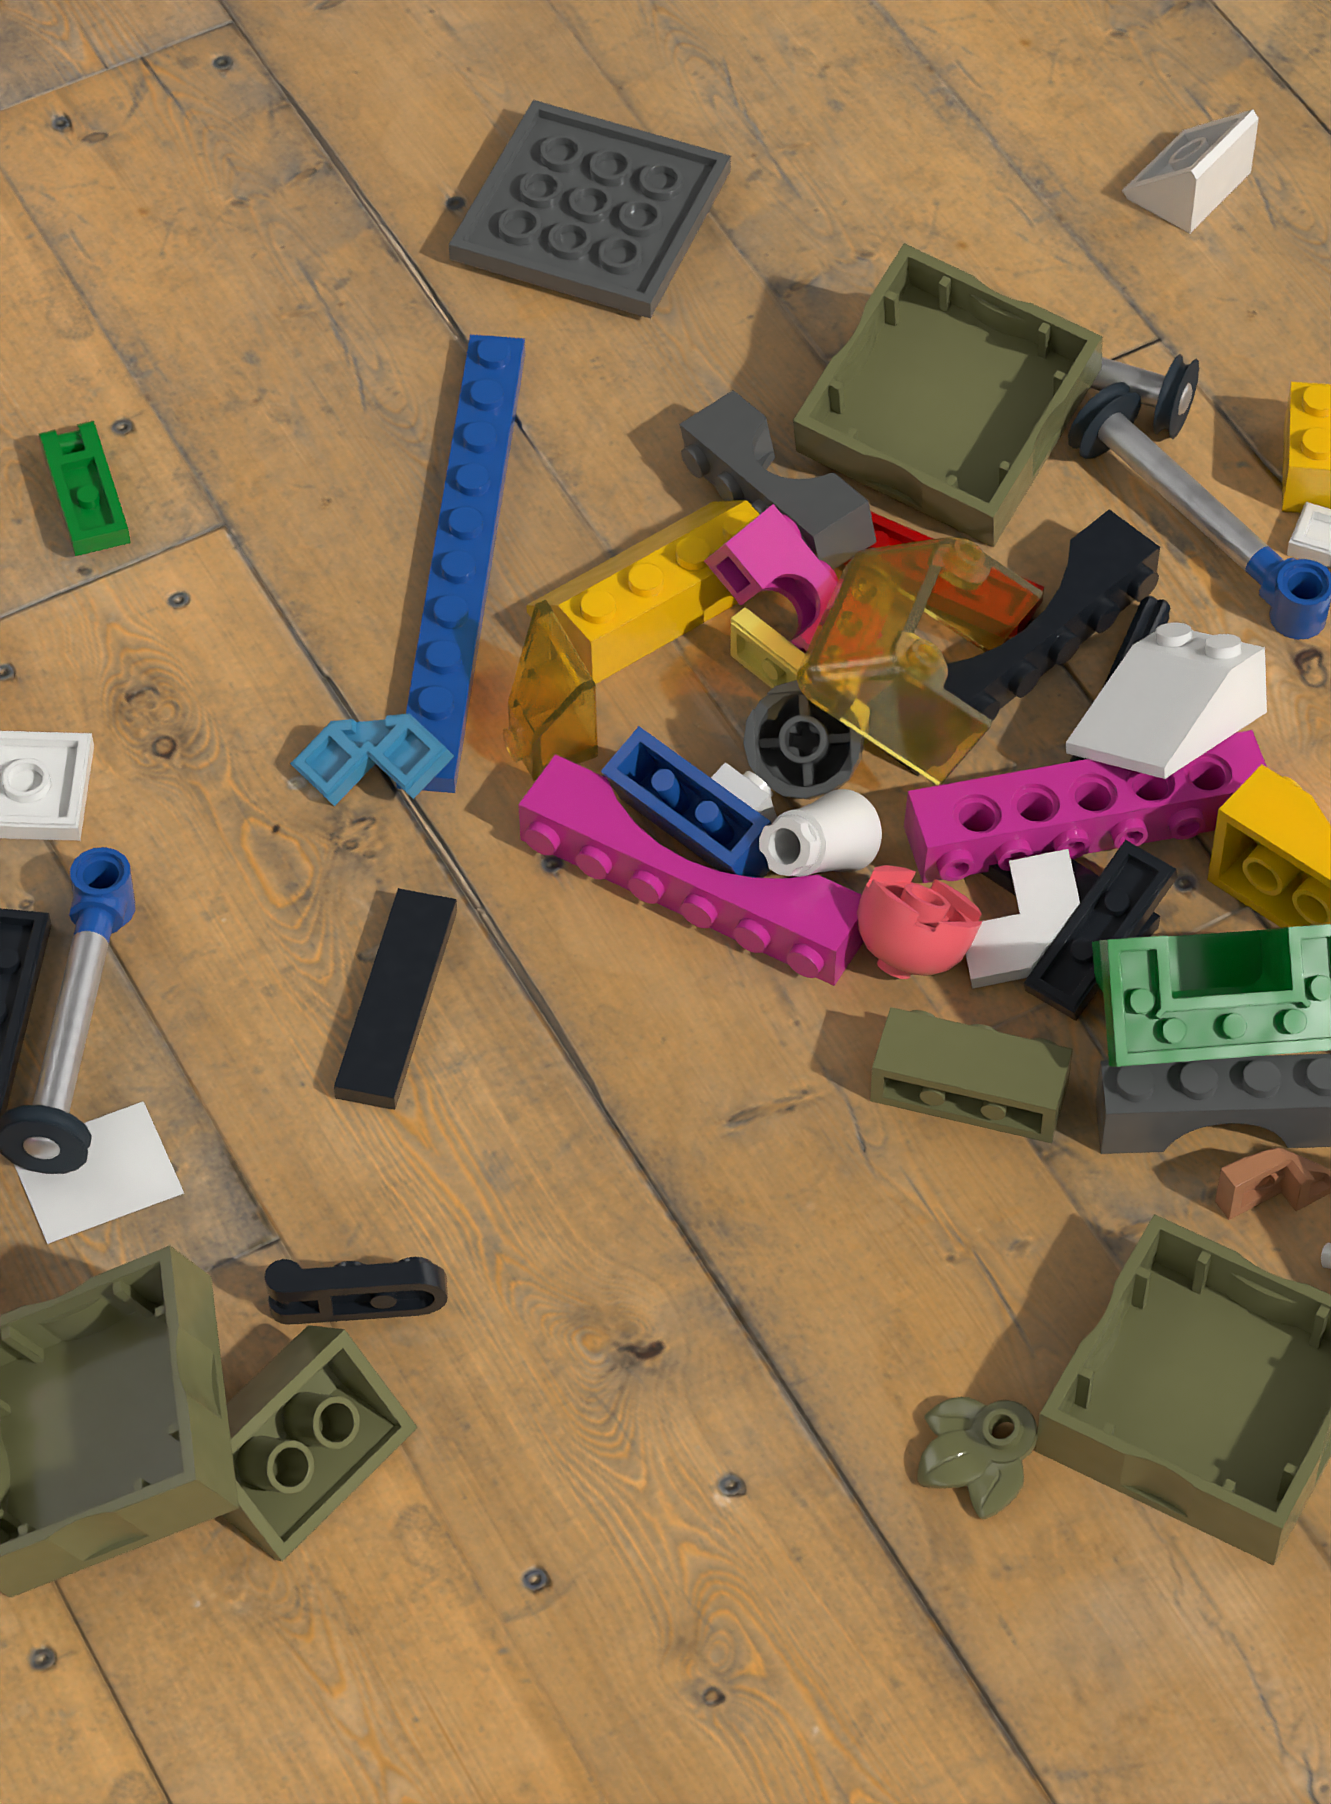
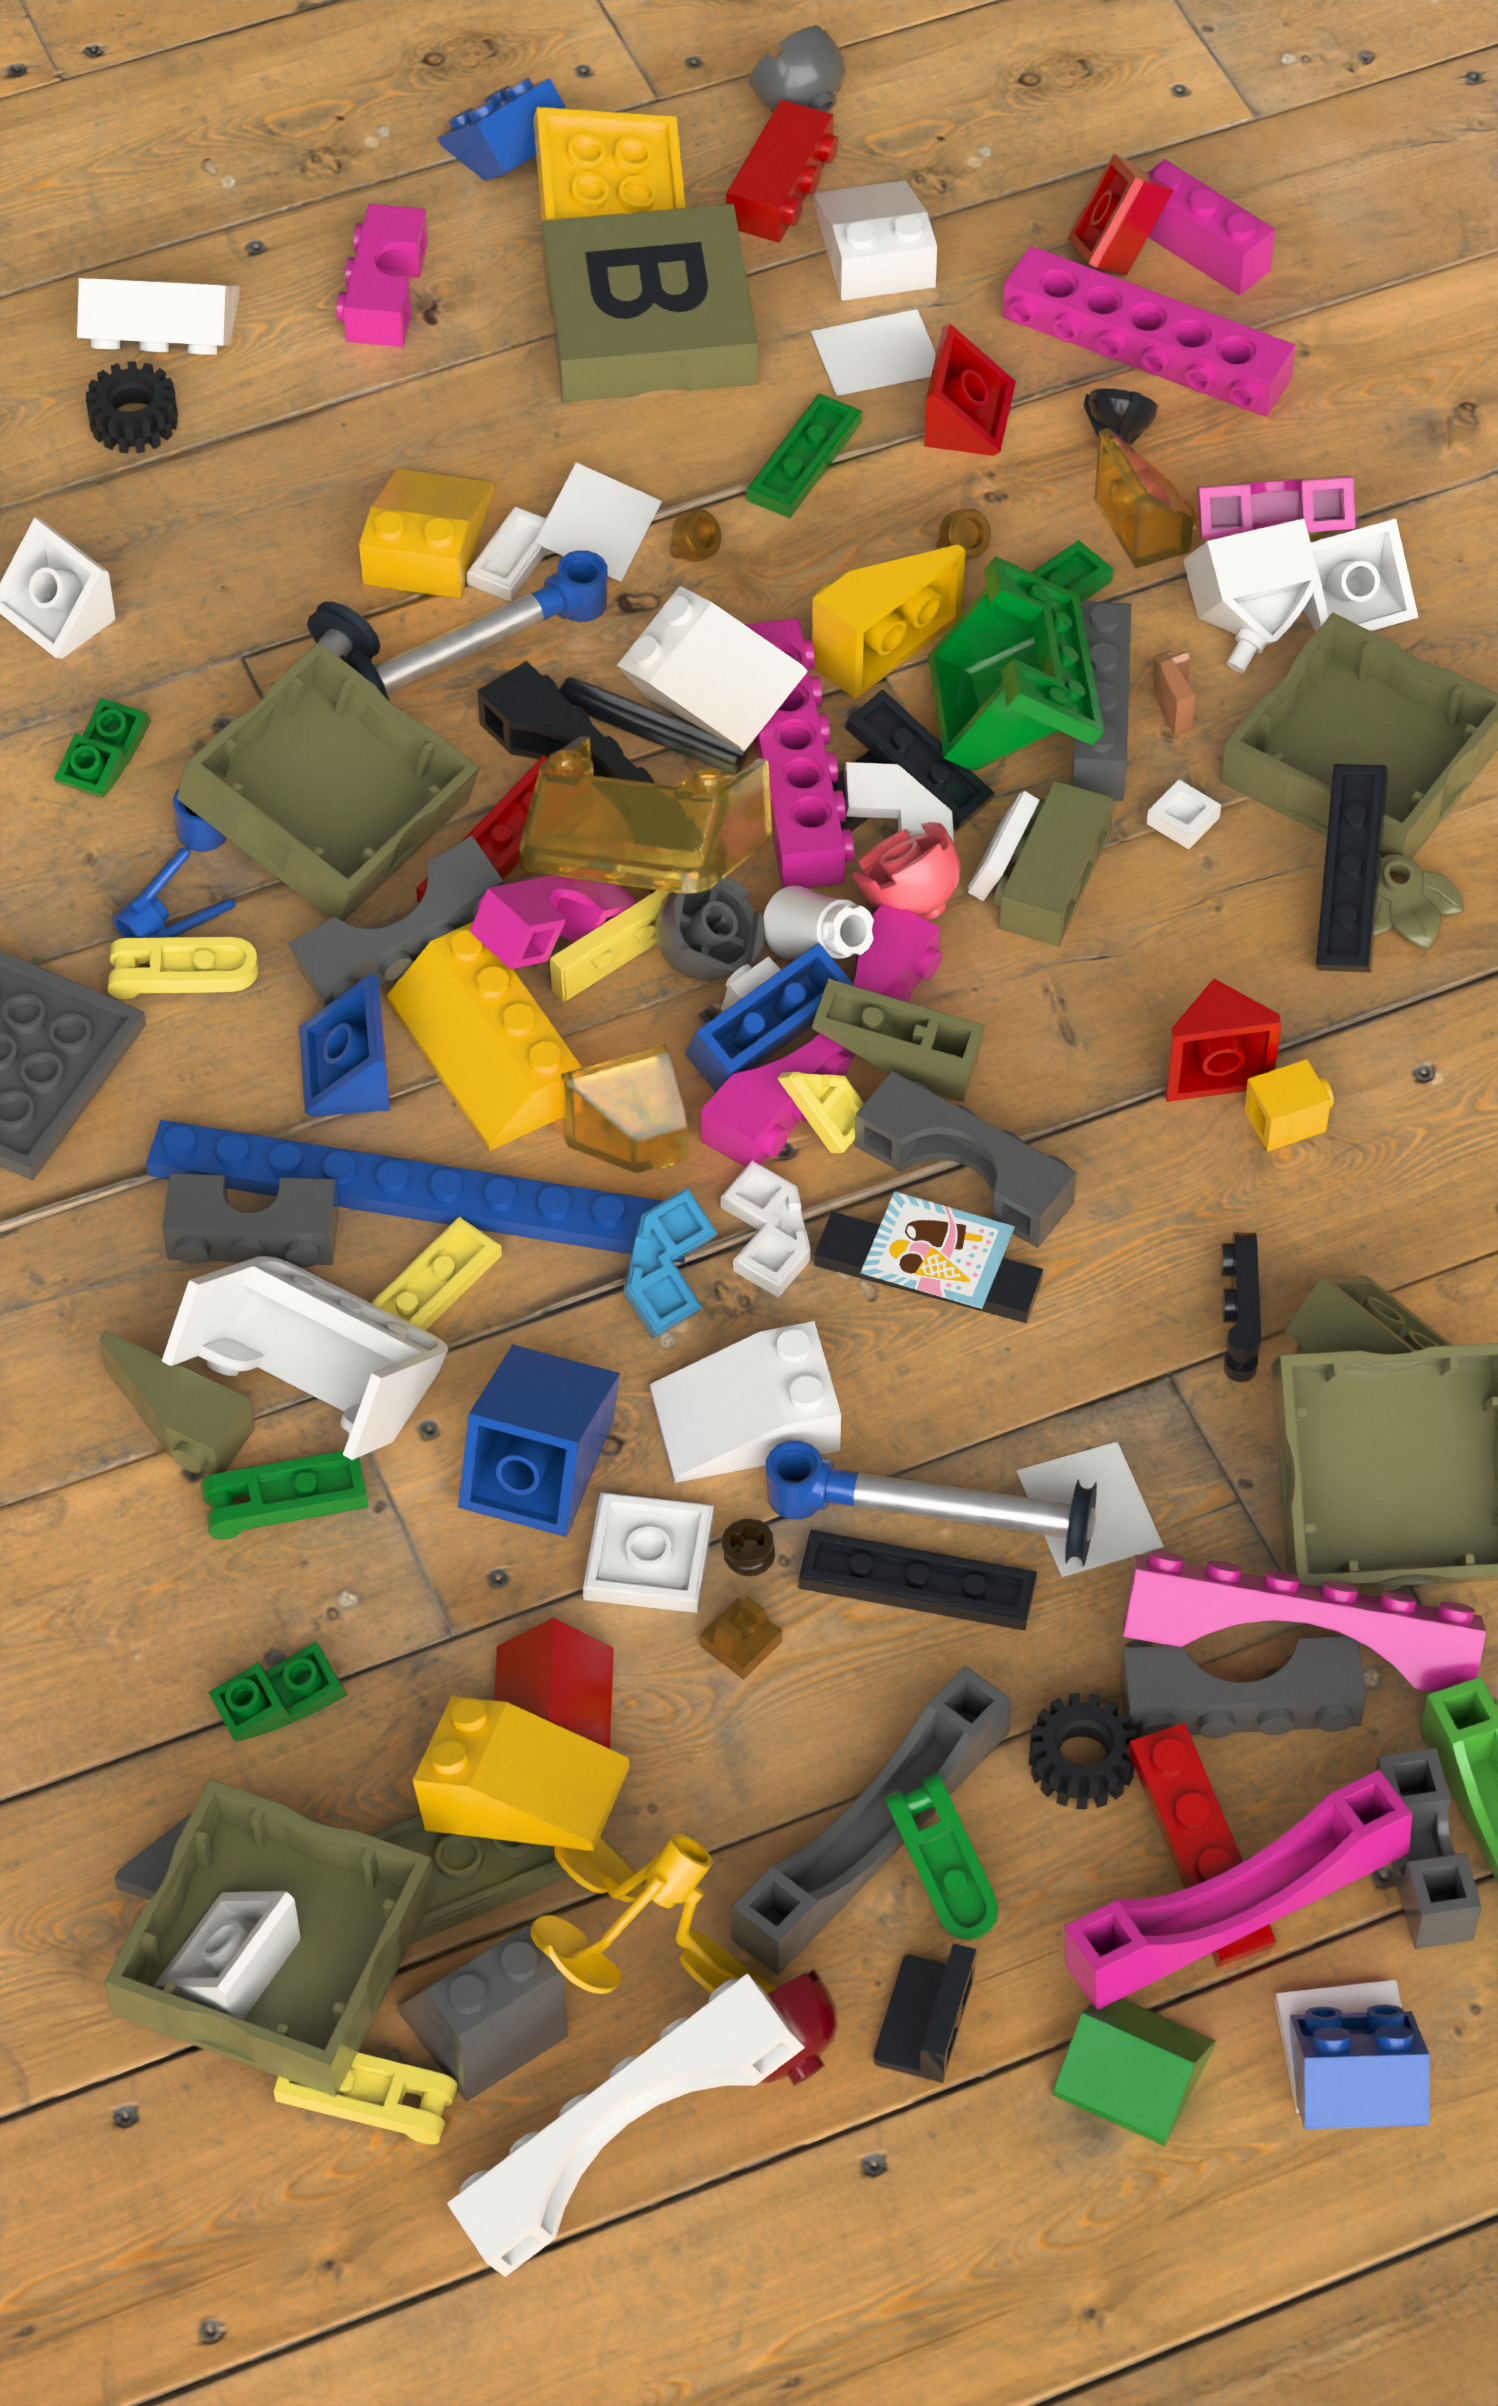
camera: 85 degrees left, 0 degrees up
(32, 882) = (761, 1556): none -> dark brown bush
(150, 666) = (536, 1439): none -> blue slope
(174, 390) = (189, 1414): none -> olive slope
(201, 853) = (747, 1401): none -> white slope
(287, 458) = (312, 1338): none -> white windscreen
(341, 574) = (439, 1274): none -> light yellow tile
(400, 452) = (293, 1228): none -> dark grey arch
(410, 997) = (938, 1250): none -> sticker
(465, 855) = (773, 1208): none -> white tile
(498, 1069) = (912, 1125): none -> dark grey arch
(586, 874) = (827, 1104): none -> light yellow tile
(622, 481) = (346, 1054): none -> blue slope
(641, 1324) = (1288, 1104): none -> yellow brick
(670, 926) = (902, 1037): none -> olive slope
(701, 1228) = (1220, 1044): none -> red slope
(722, 333) = (181, 965): none -> light yellow plate
(781, 293) = (146, 914): none -> blue plant
(974, 1010) = (1002, 845): none -> white tile
(989, 239) = (104, 750): none -> green slope
(991, 1365) = (1352, 868): none -> black tile
(1071, 1203) = (1183, 814): none -> white plate

